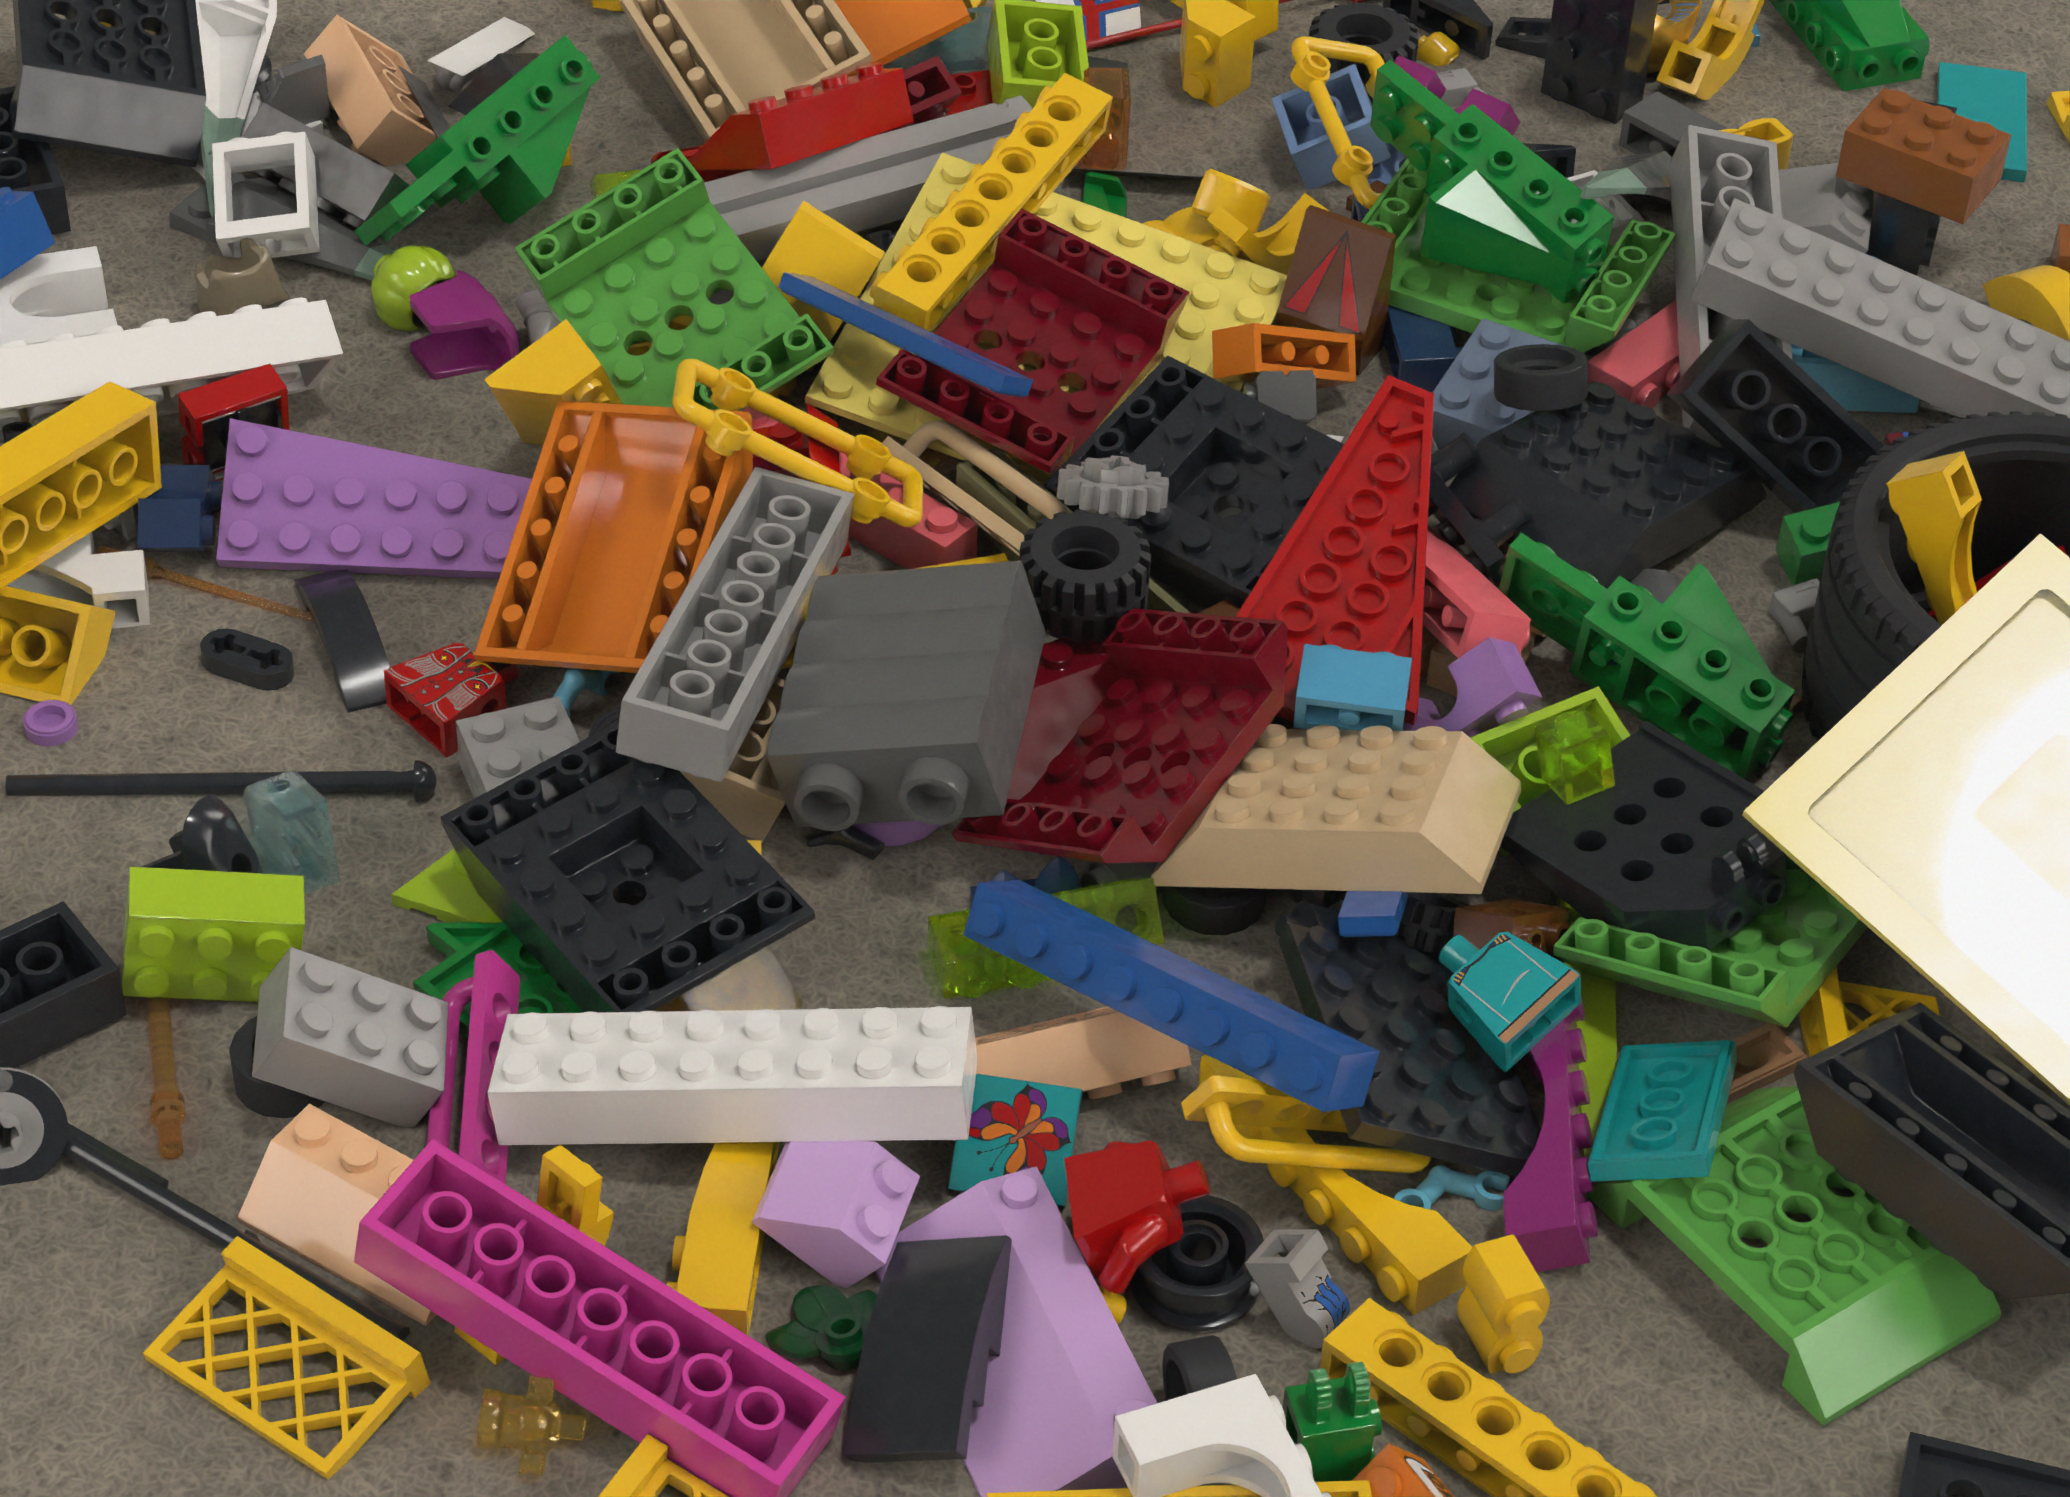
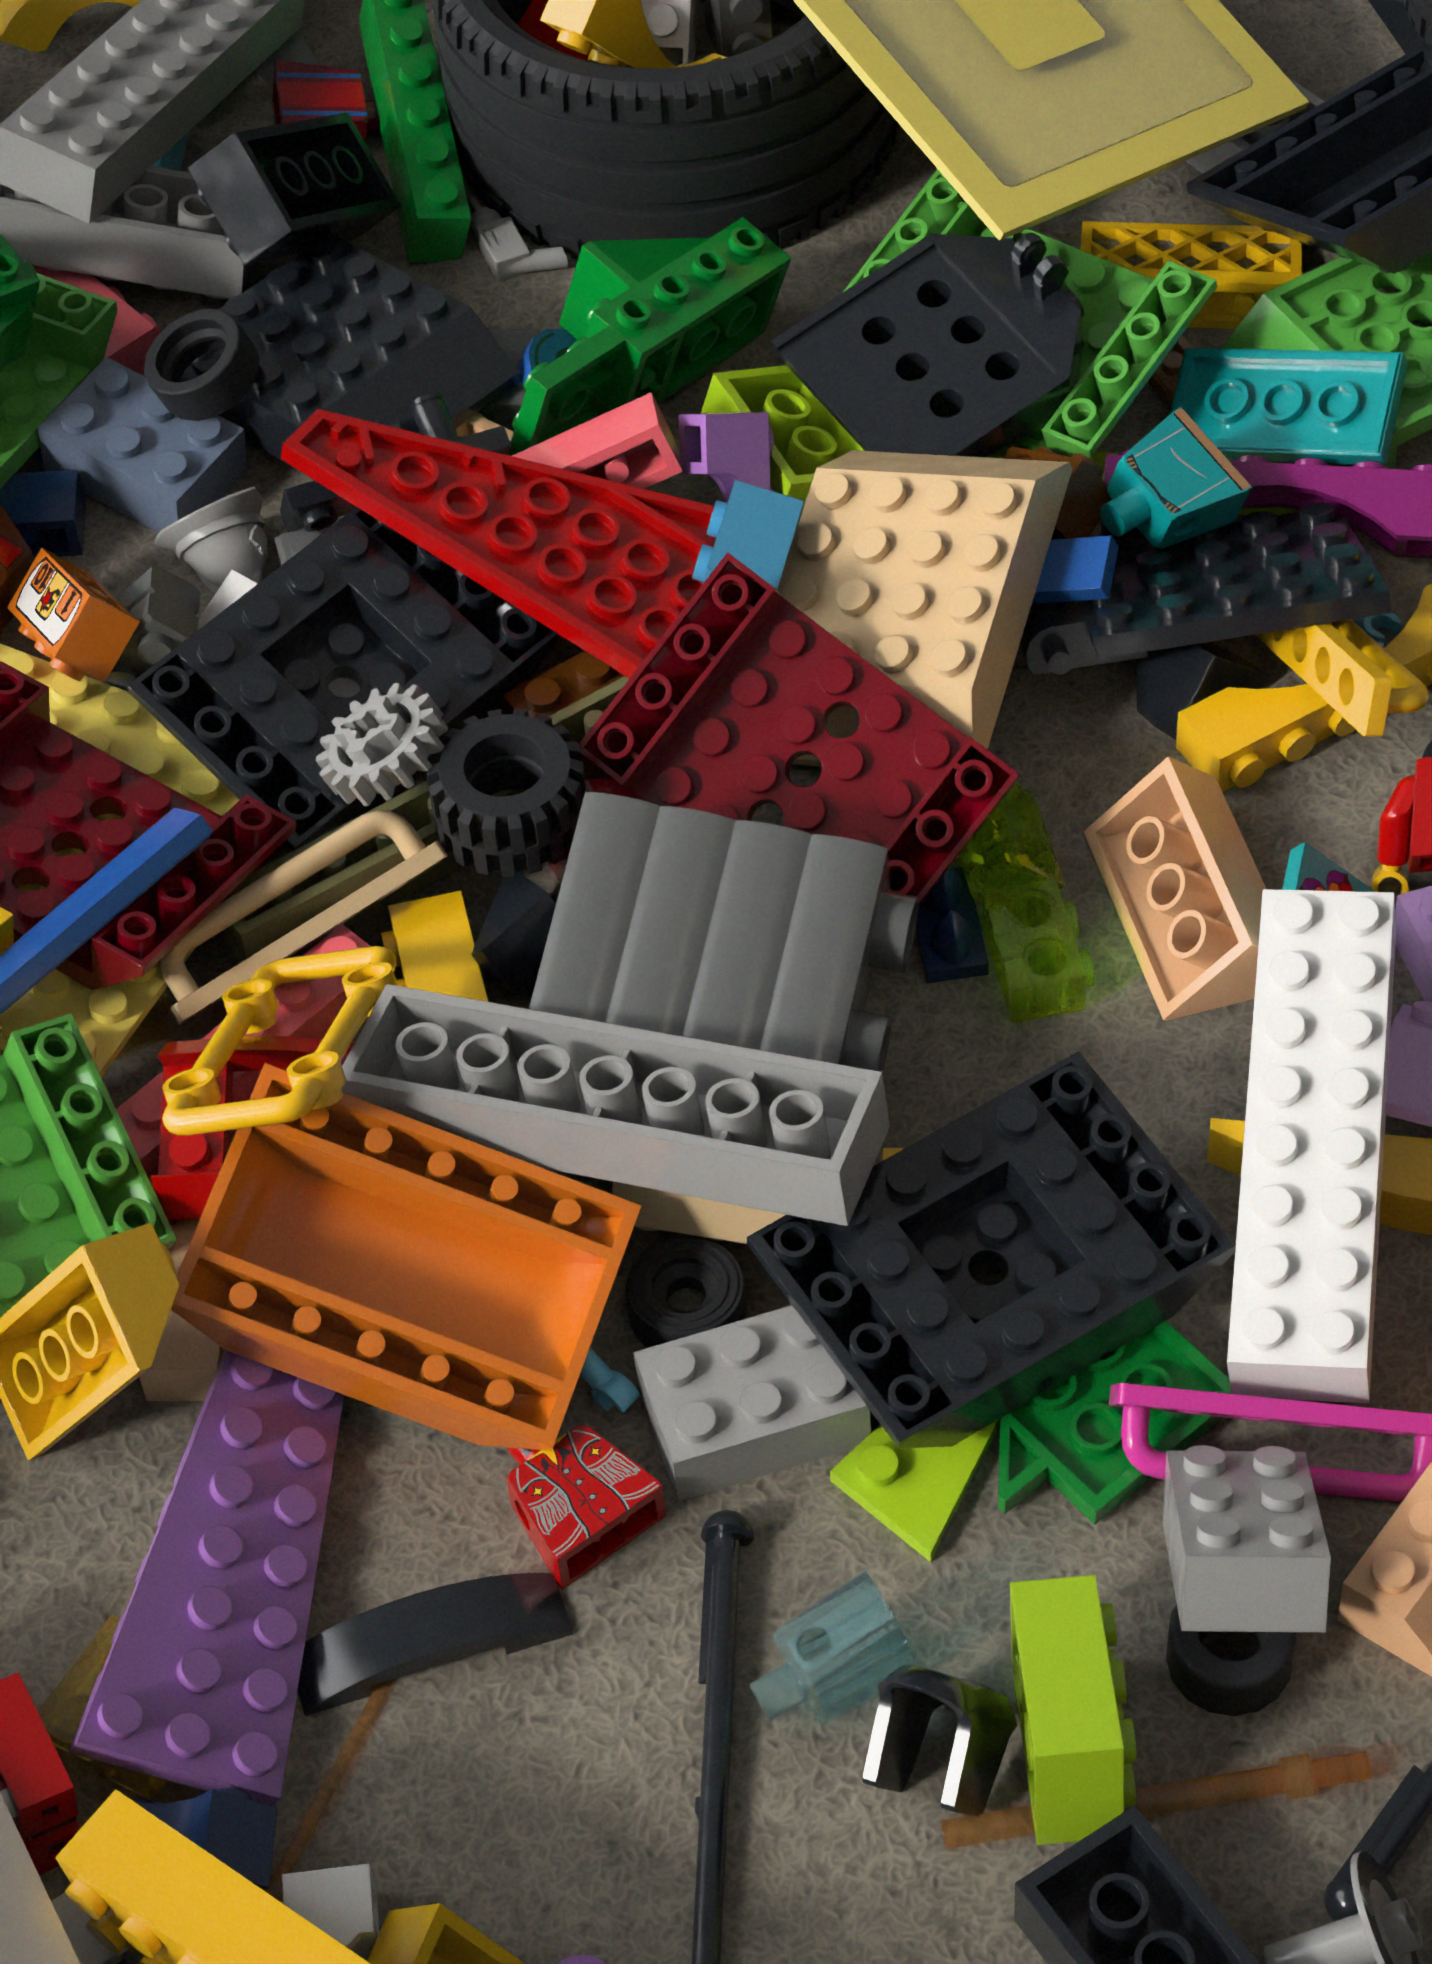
camera: 80 degrees left, 10 degrees up
(247, 659) = (460, 1746): black beam -> none
(1173, 995) = (1209, 738): blue brick -> none
(1574, 755) = (844, 389): clear neon green brick -> none

